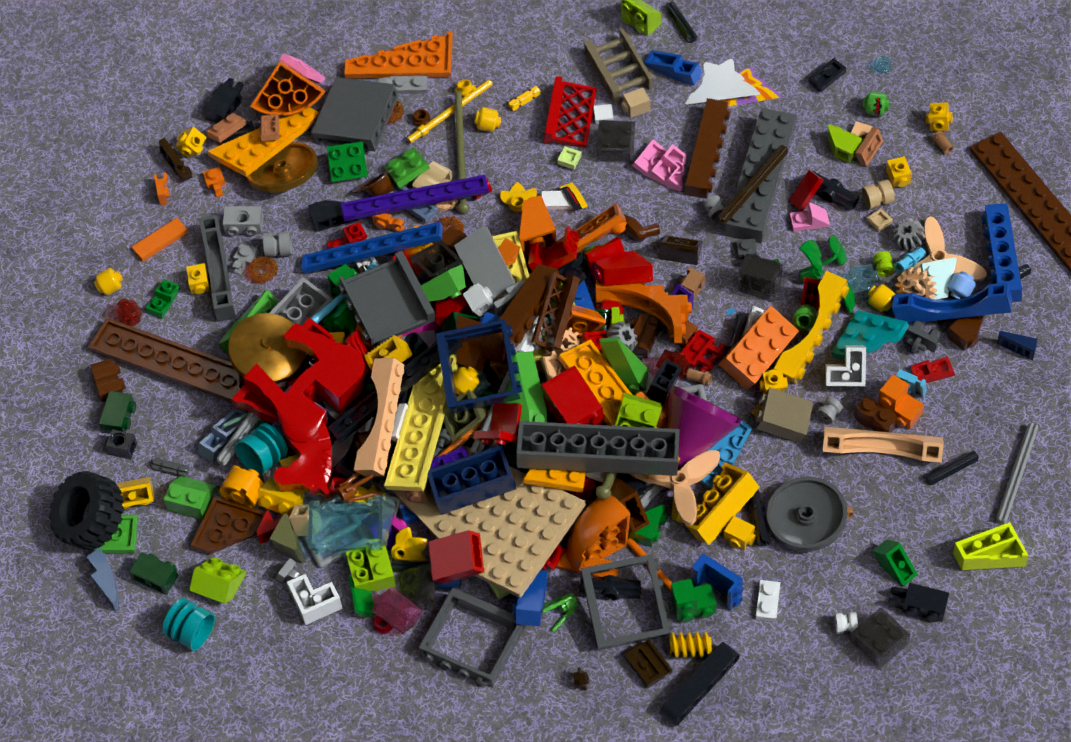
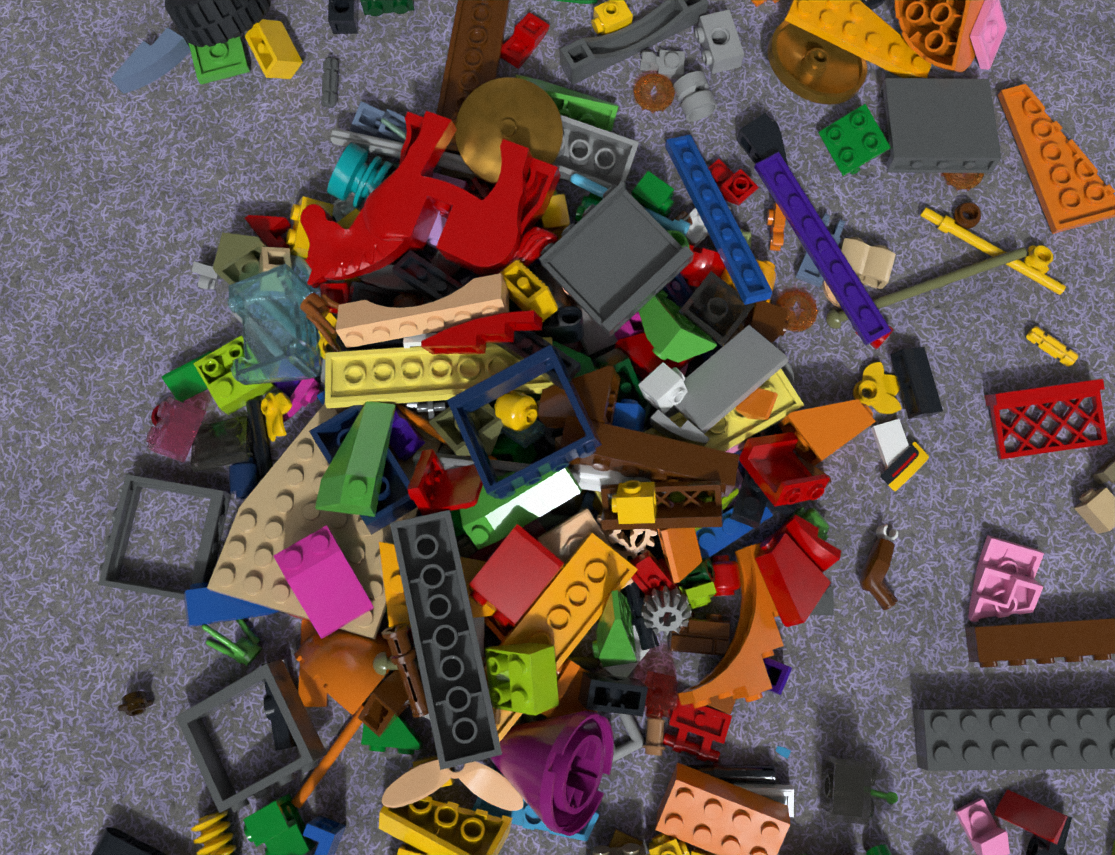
camera: 70 degrees right, 20 degrees up
(154, 573) = (172, 114): dark green brick -> none
(188, 336) = (523, 42): none -> red slope
(188, 624) = (99, 177): teal wheel -> none
(189, 497) = (291, 119): bright green slope -> none
(217, 580) = (179, 192): lime slope -> none
(226, 525) = (261, 176): reddish brown plate -> none
(241, 486) = (308, 174): light orange brick -> none
(270, 127) = (872, 21): nougat plate -> none
(313, 603) = (167, 312): white brick -> none
(376, 186) = (830, 190): reddish brown piece -> none
(407, 167) = (873, 222): bright green plate -> none
(408, 84) = (1016, 177): light grey hinge -> none
(409, 386) = (474, 334): none -> red slope
(456, 556) = (246, 484): red brick -> none
(473, 471) = (357, 469): none -> bright green wedge
(487, 119) = (994, 305): yellow head -> none
(522, 174) = (916, 382): none -> black piece
(538, 516) = (323, 581): none -> dark pink slope
(549, 320) = (635, 502): none -> yellow brick
(569, 157) = (969, 441): yellowish green plate -> none
(603, 112) = (1065, 467): white tile -> none
(603, 476) = (403, 656): none -> reddish brown pin
(607, 222) = (856, 522): orange slope -> none
(616, 141) = (1020, 500): clear smoke brick -> none
(648, 663) = (177, 791): dark brown plate -> none
(681, 250) = (866, 650): dark brown slope -> none
(693, 281) = (807, 683): medium nougat brick -> none
(714, 206) = (953, 681): light grey wheel -> none
(746, 246) = (895, 748): dark grey plate -> none
(752, 184) = (1006, 736): dark brown axle -> none

